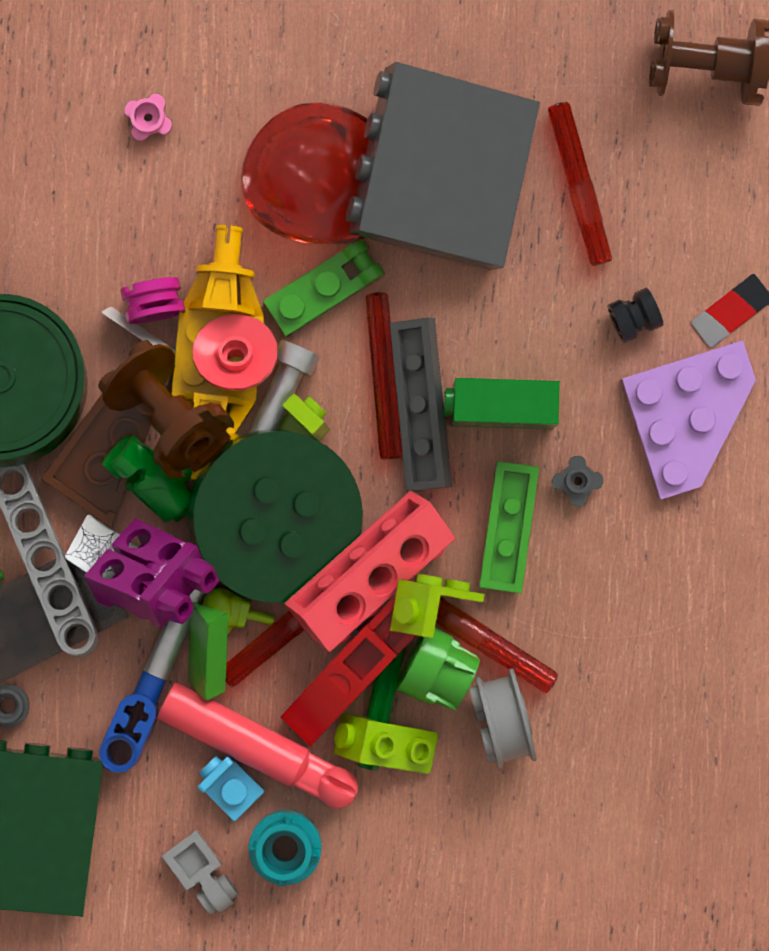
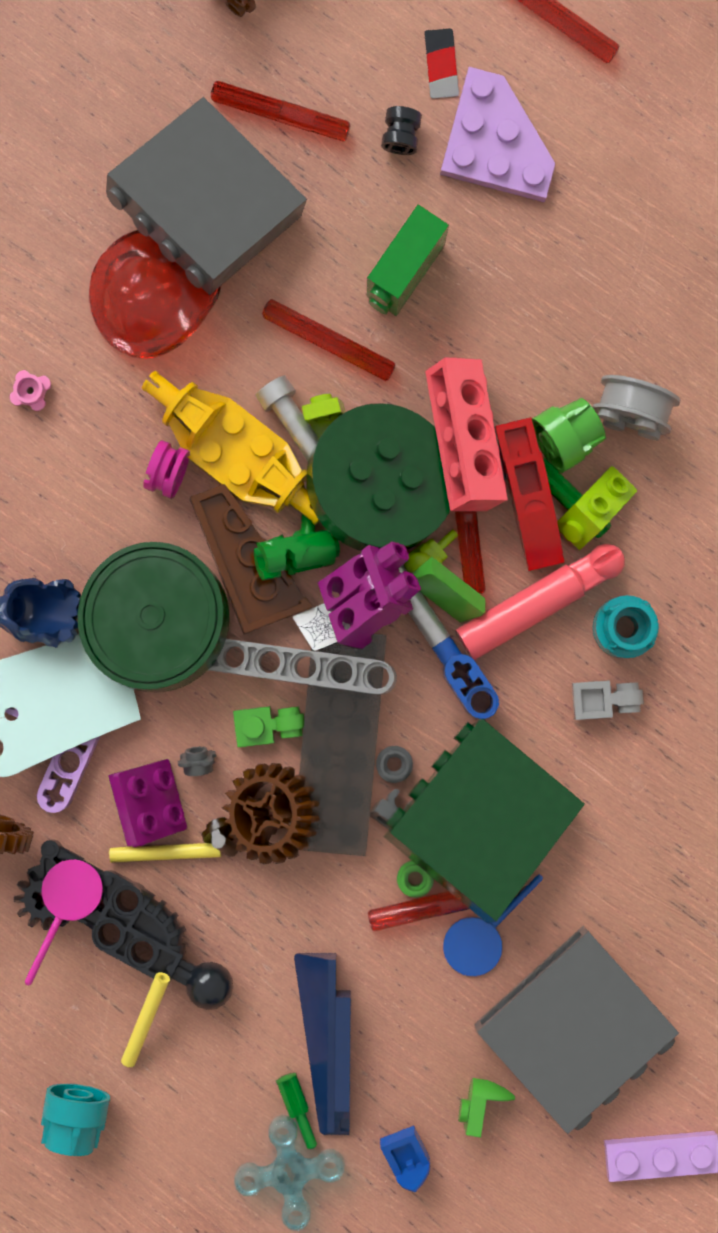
camera: 60 degrees left, 0 degrees up
(133, 328) = (183, 495): white sticker -> none
(187, 433) = (283, 497): reddish brown piece -> none
(229, 786) = (555, 639): medium azure bracket -> none
(232, 337) = (235, 422): coral dish -> none
(322, 288) = (237, 344): bright green plate -> none
(418, 603) = (513, 411): lime bracket -> none
(420, 404) = (366, 325): dark grey plate -> none
(495, 646) = (564, 389): clear red axle -> none
(509, 527) = (496, 318): bright green plate -> none
(565, 481) = (493, 259): dark grey plate -> none

